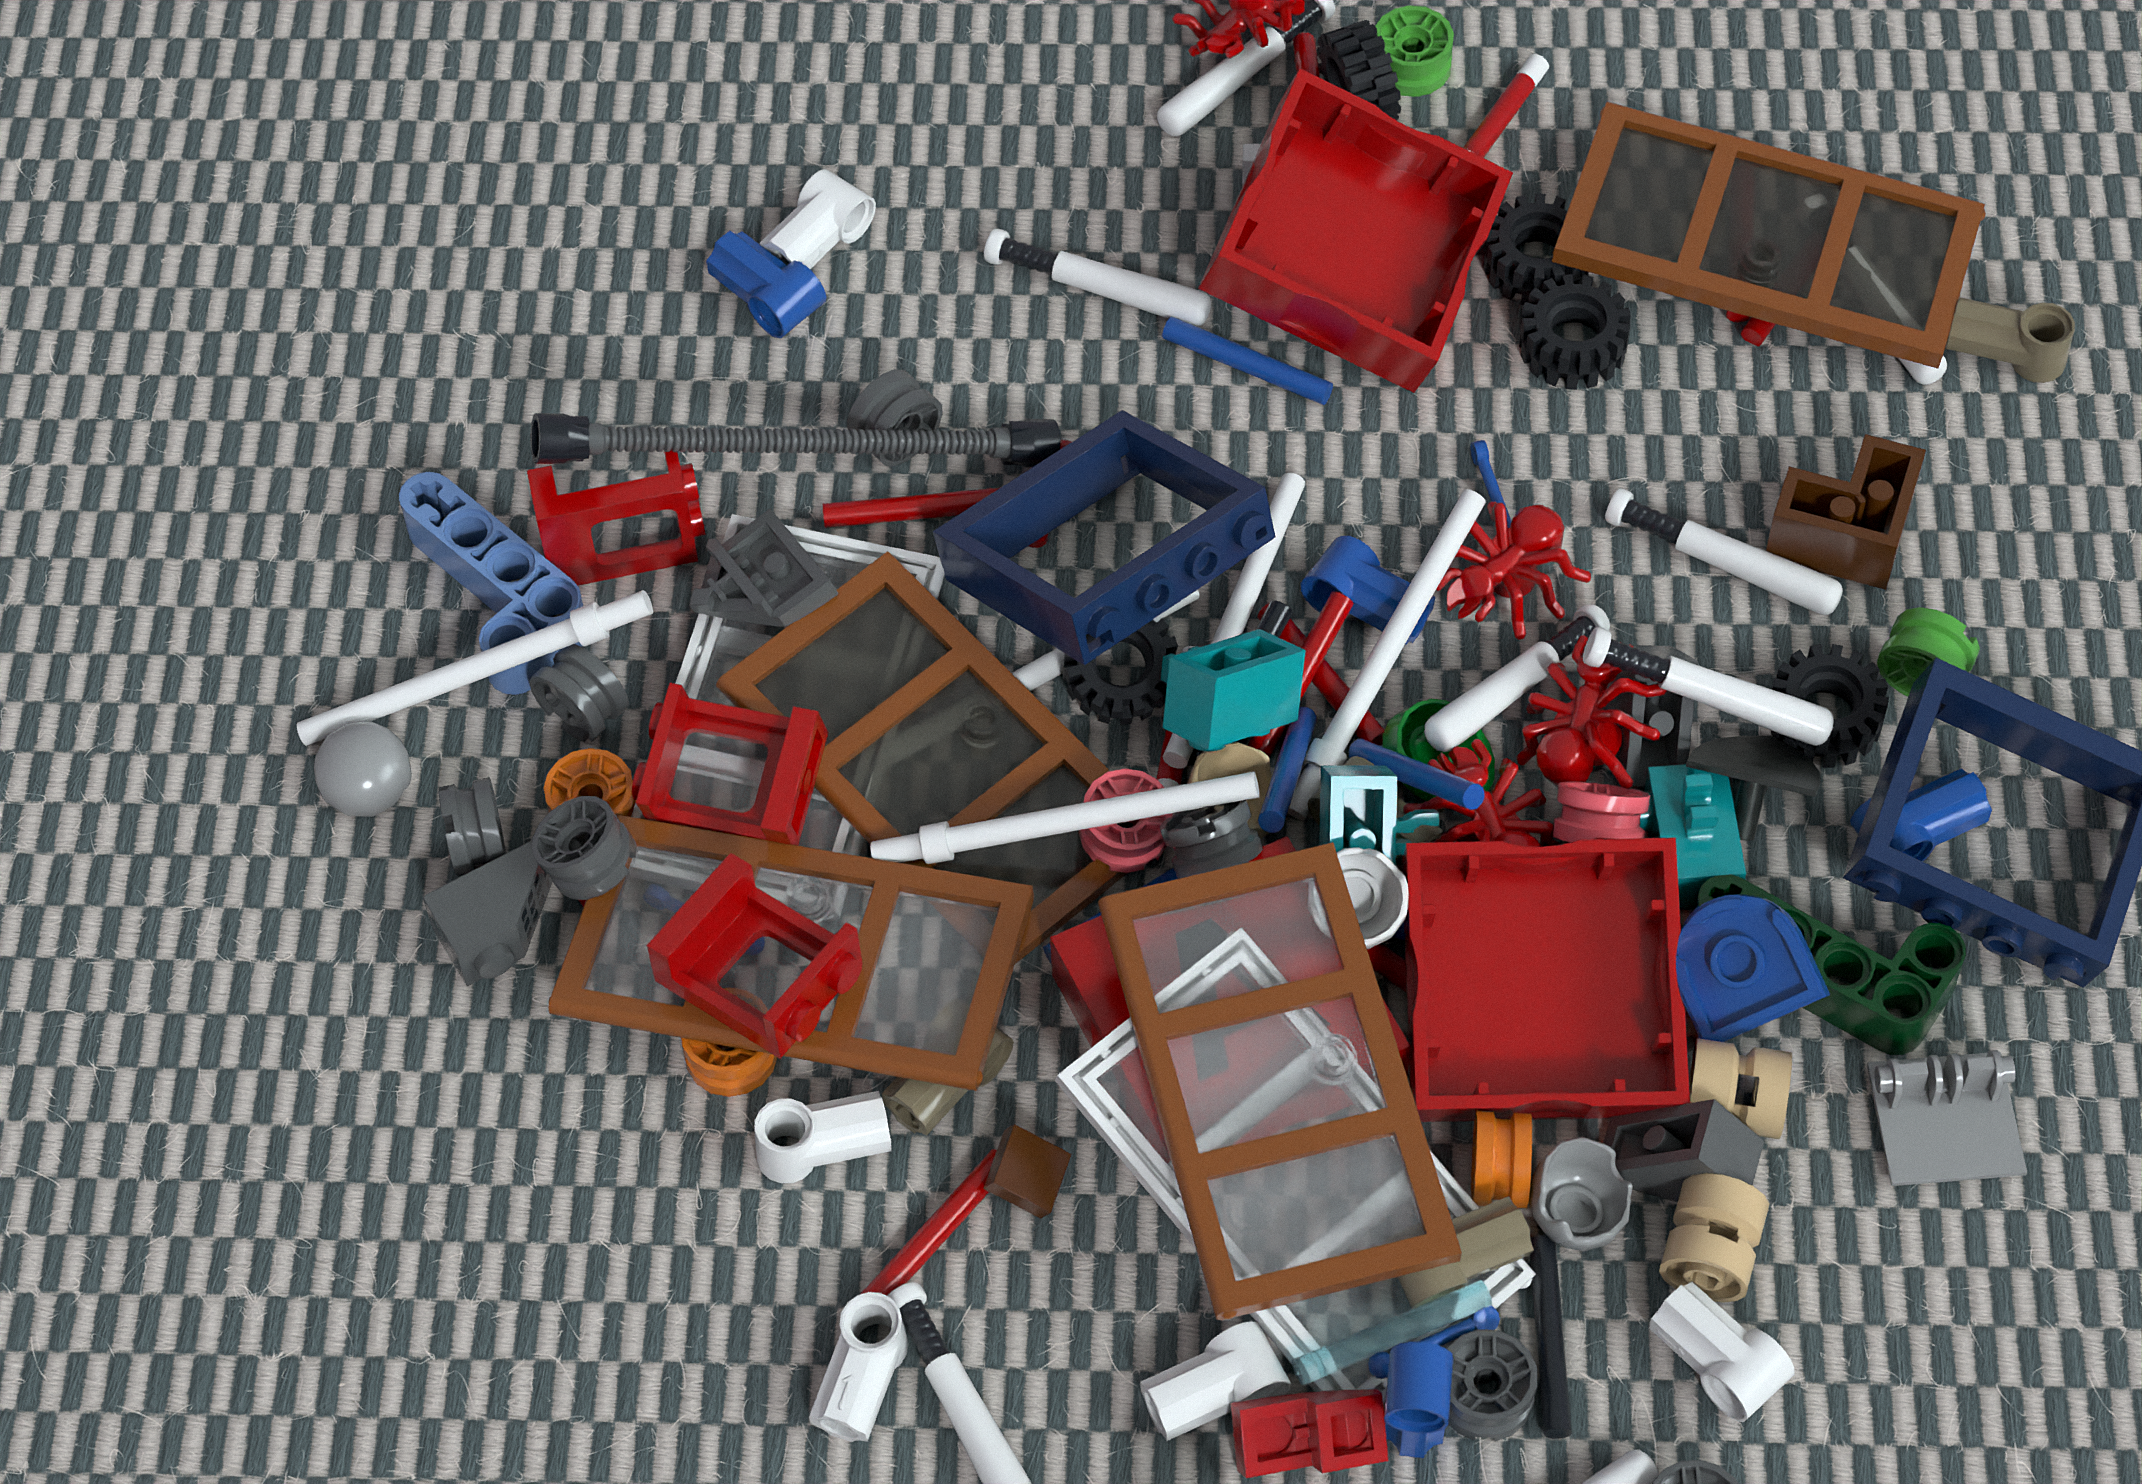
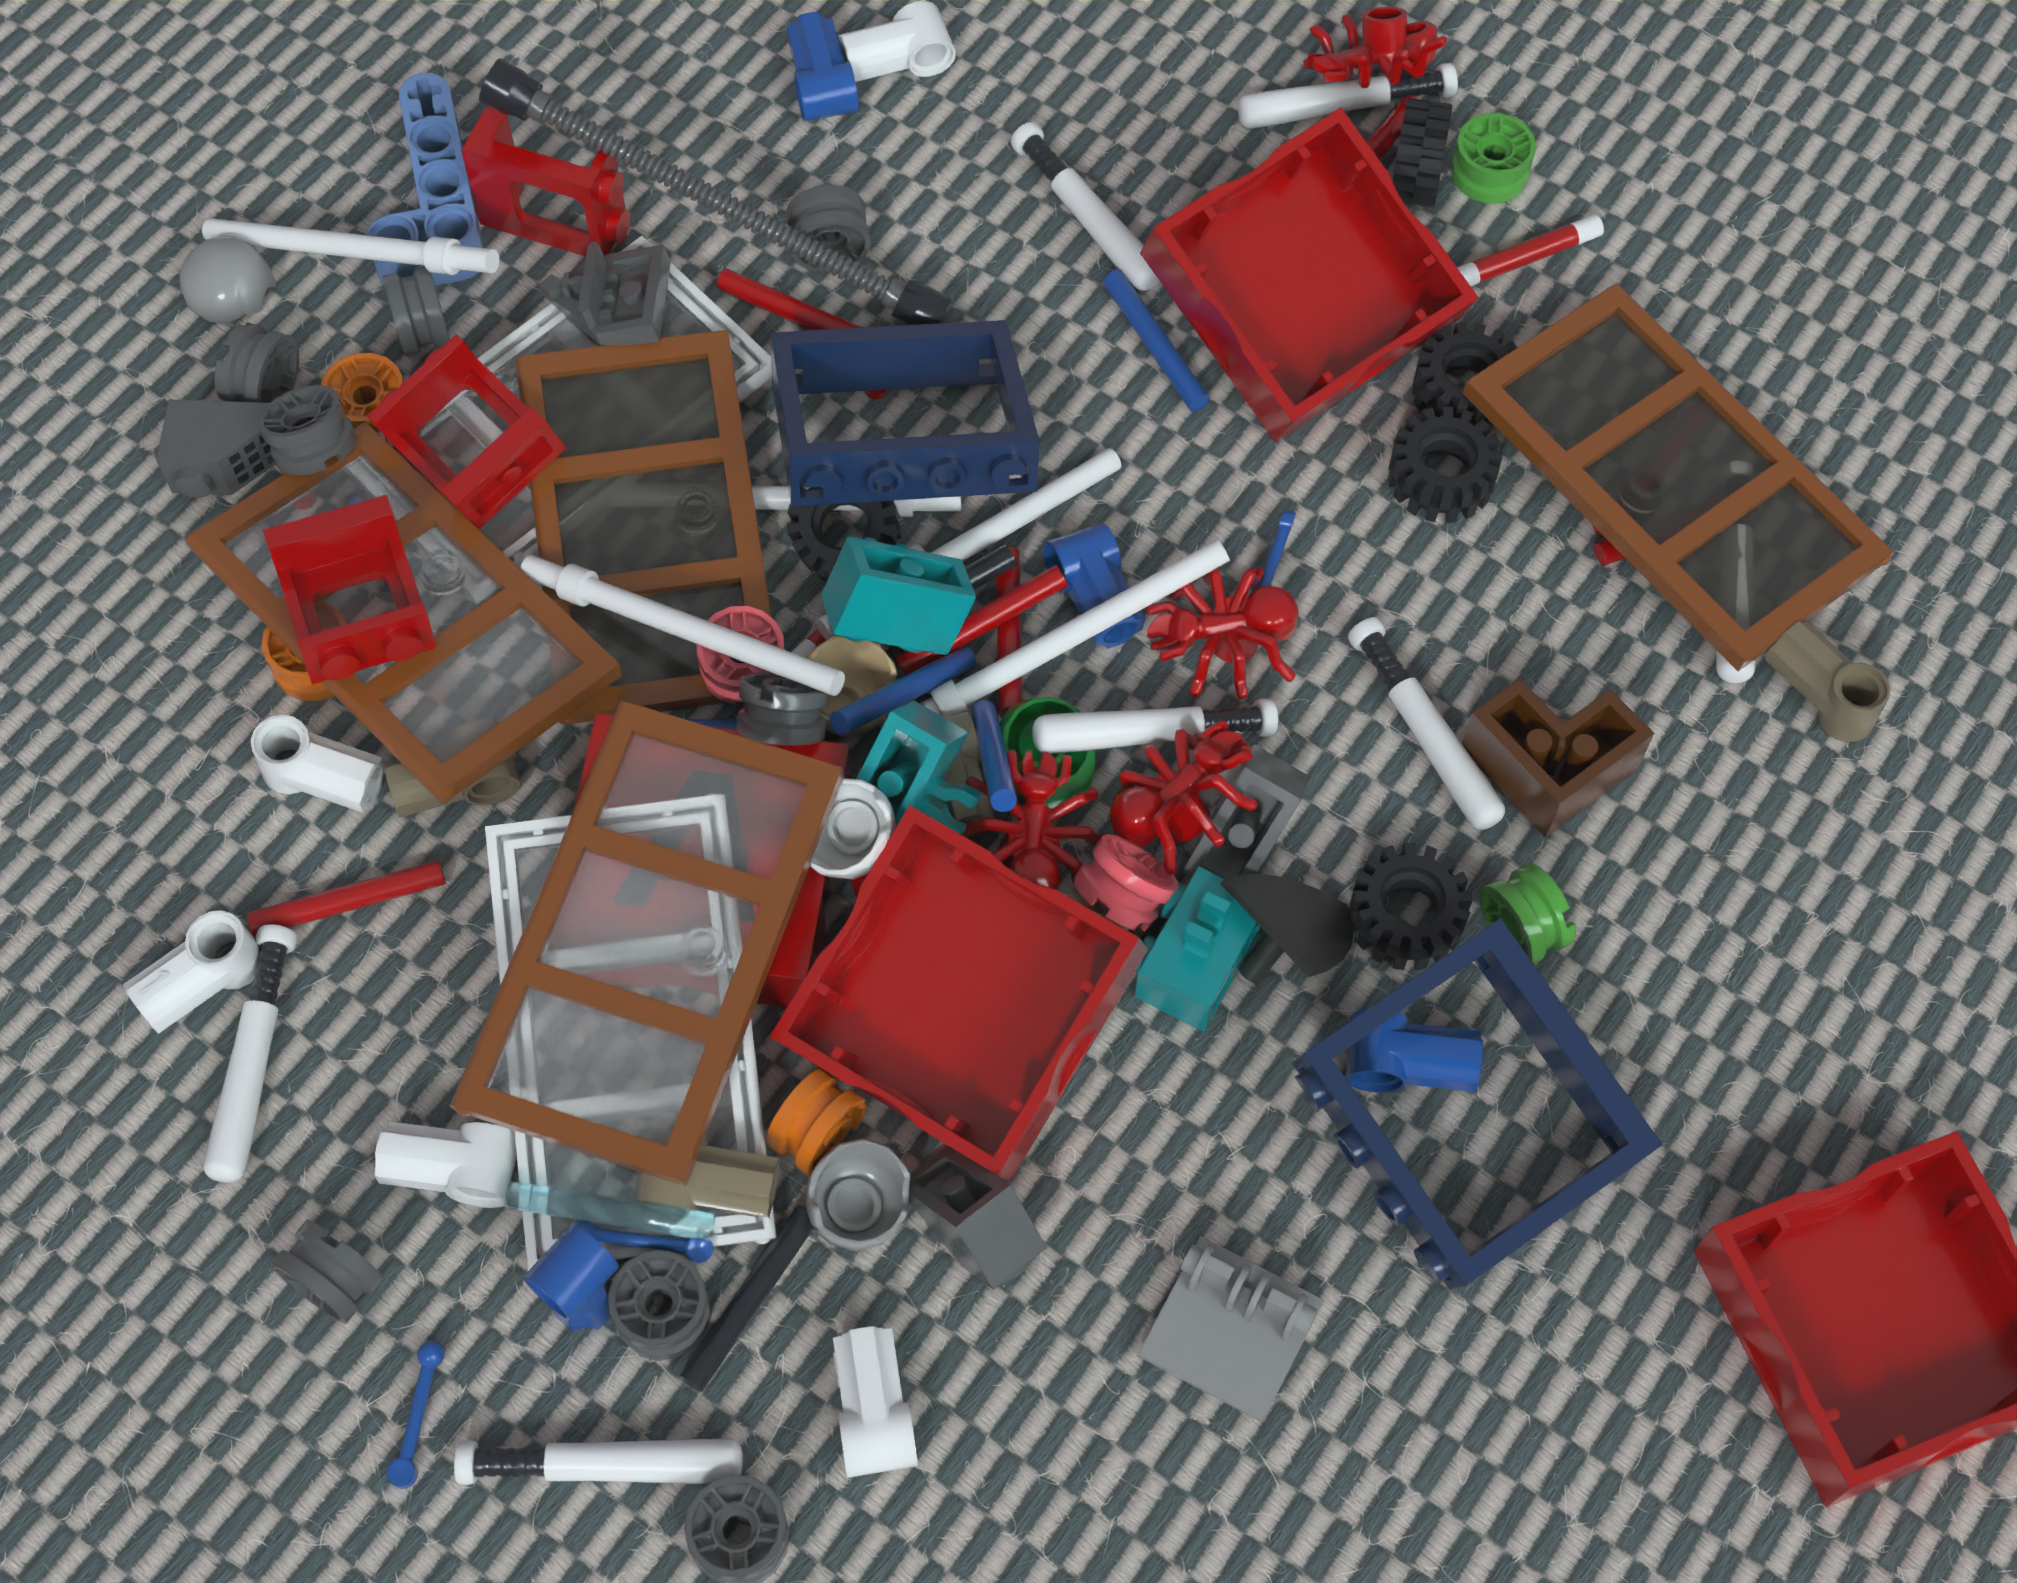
camera: 30 degrees right, 5 degrees up
(1027, 1171) = (447, 894): reddish brown tile -> none
(1309, 1429) = (482, 1246): red slope -> none
(1715, 1077) = (1046, 1170): tan wheel -> none
(1715, 1236) = (960, 1290): tan wheel -> none
(1726, 693) = (1314, 853): white piece -> none
(1743, 966) = (1143, 1086): blue tile -> none
(1875, 980) = (1230, 1119): dark green beam -> none

